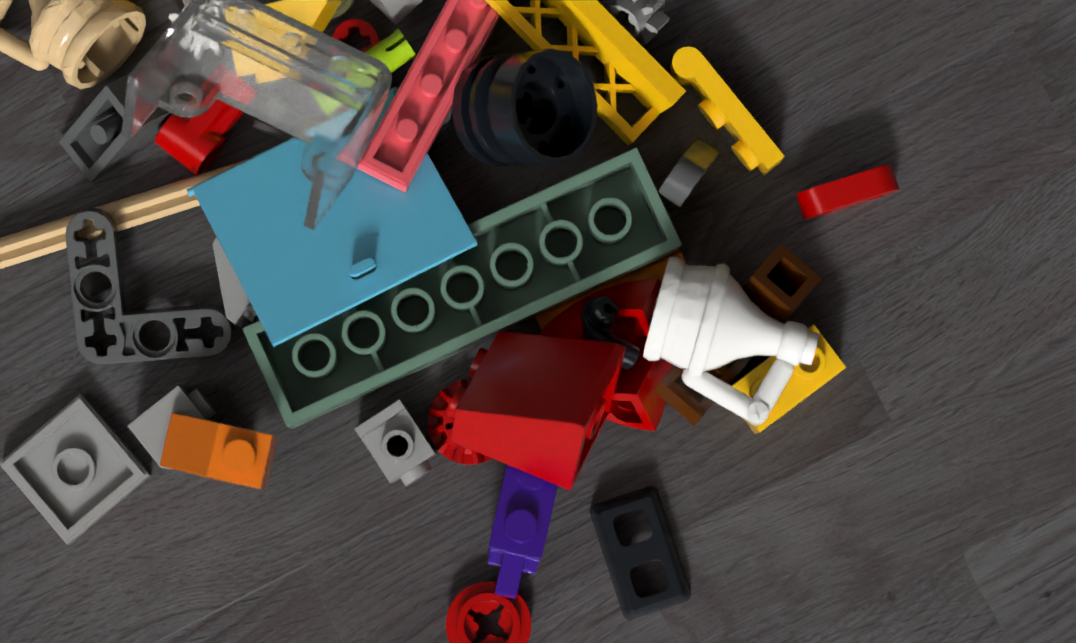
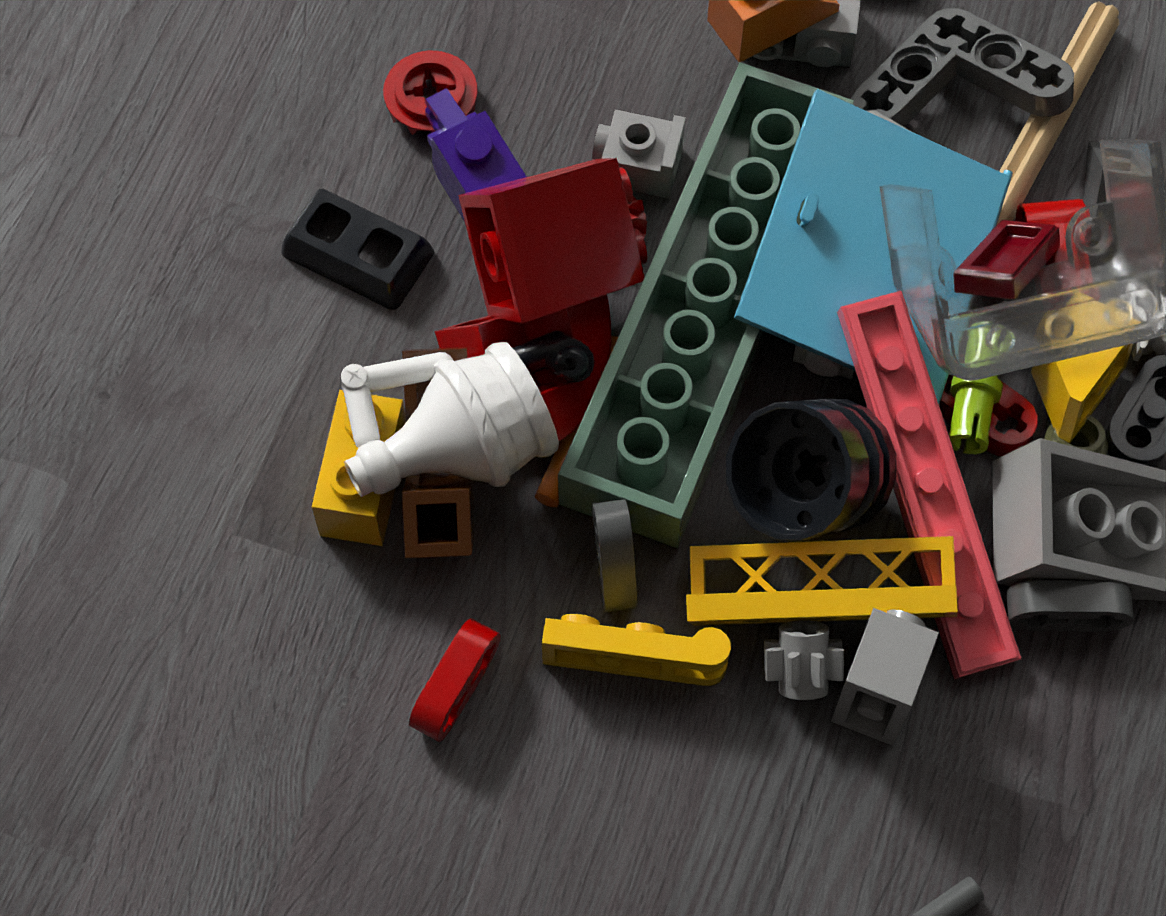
camera: 135 degrees right, 20 degrees down
(262, 128) = (1007, 259): none -> dark red tile

